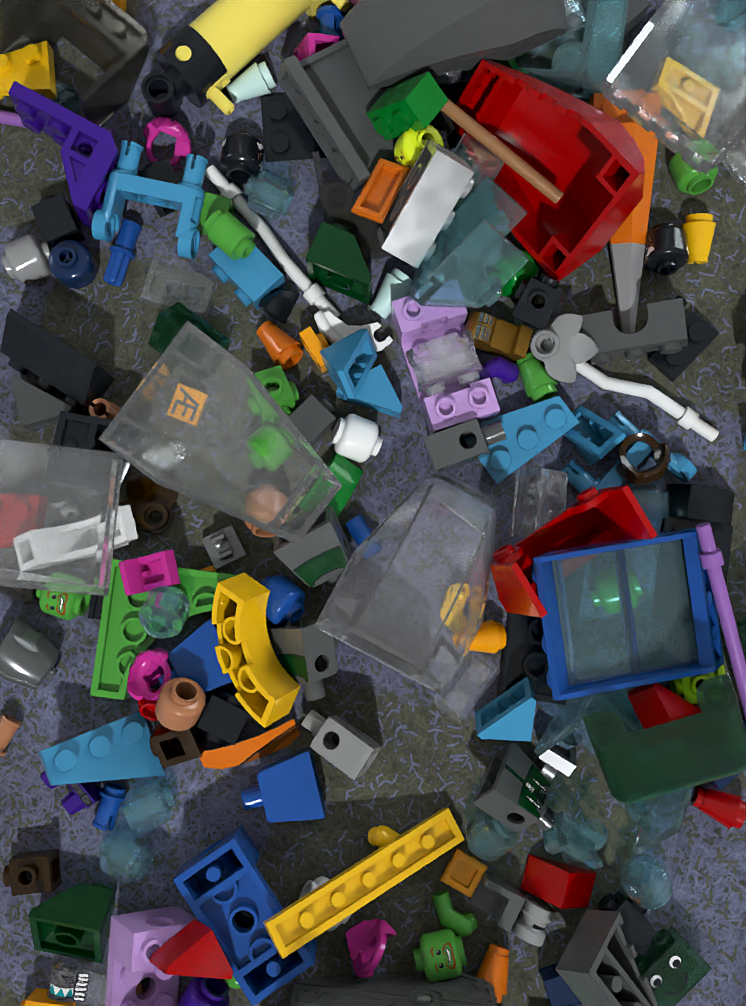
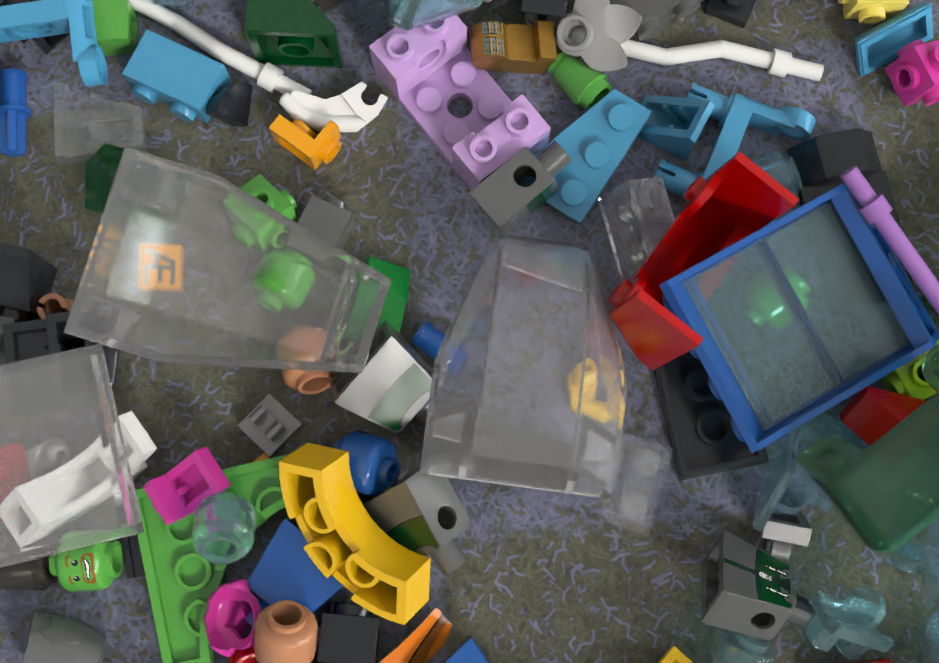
camera: 20 degrees left, 5 degrees down
(145, 498) = (156, 397): dark brown plate -> none
(229, 235) = (140, 38): bright green brick -> none
(279, 345) = (250, 153): orange cone -> none
(350, 361) = (344, 137): dark azure slope -> none
(355, 748) = (527, 619): light grey torso -> none
(356, 438) = (386, 230): white head -> none
(376, 394) = (385, 167): dark azure slope -> none
(394, 286) = (364, 31): light aqua cone -> none
(445, 362) = (462, 95): clear brick -> none
(489, 637) = (643, 413): light orange cone -> none
(501, 369) = (530, 83): dark purple arm -> none
(509, 714) = (705, 498): dark azure slope -> none
(661, 456) = (766, 115): dark brown piece -> none

